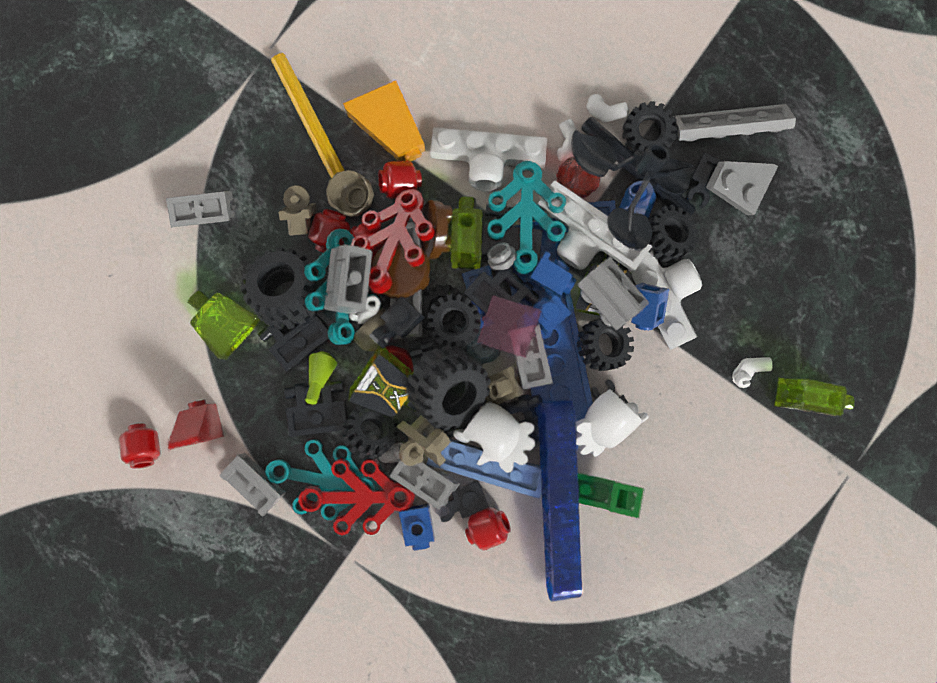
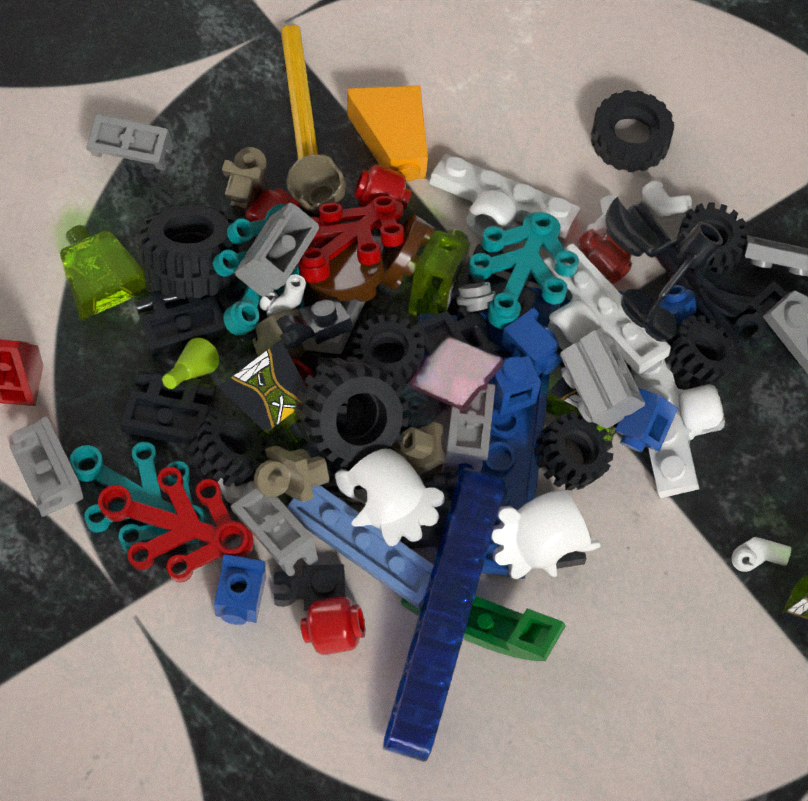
camera: 15 degrees right, 25 degrees down
(572, 34) = (636, 107): none -> black tyre

